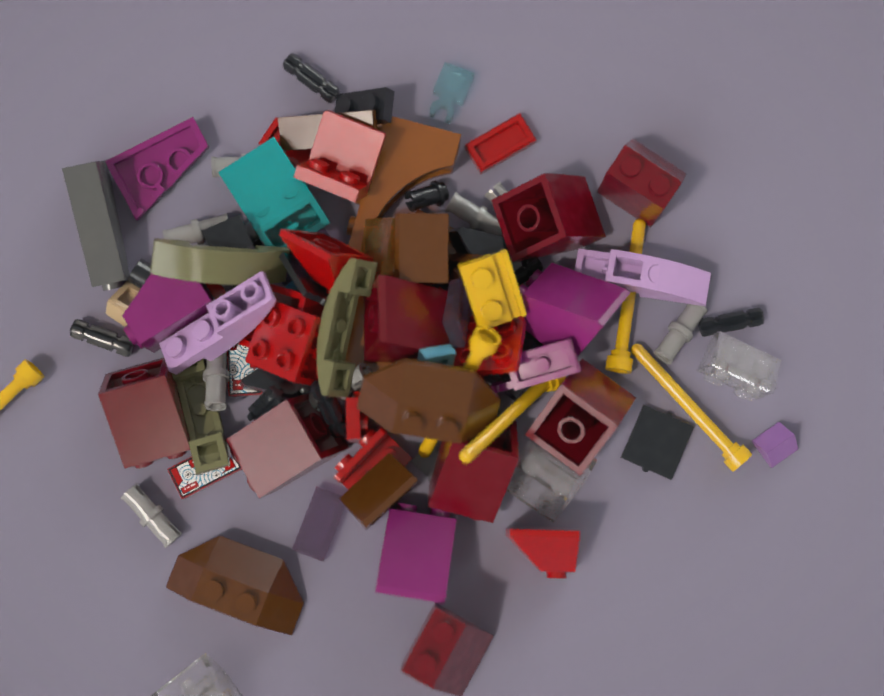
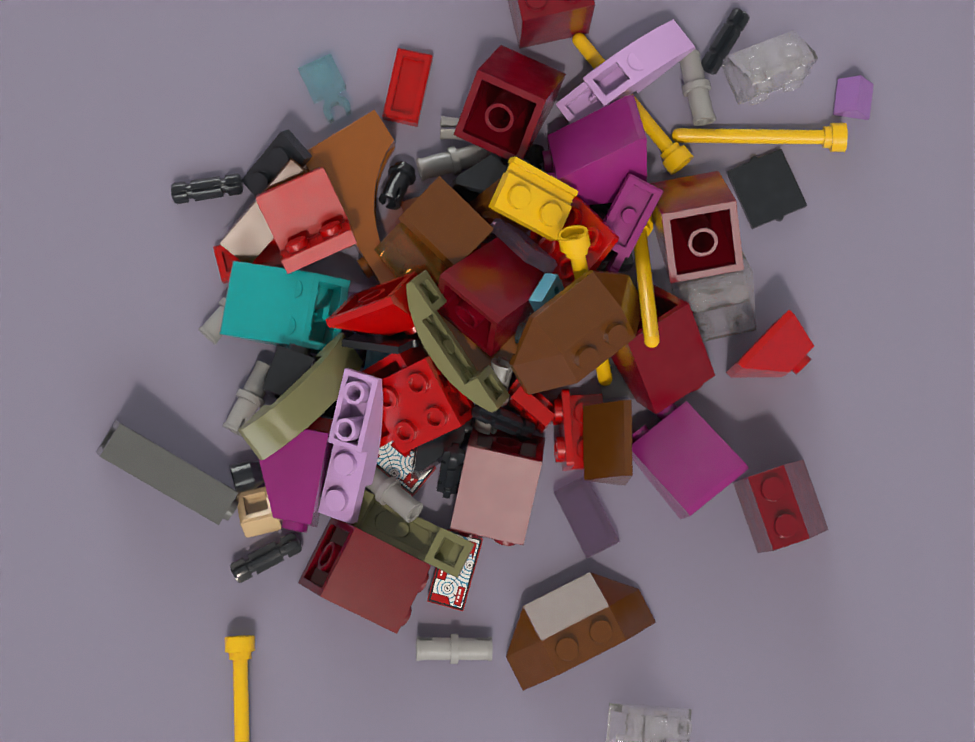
camera: 50 degrees left, 0 degrees up
(156, 164) = (160, 381): magenta wing -> none

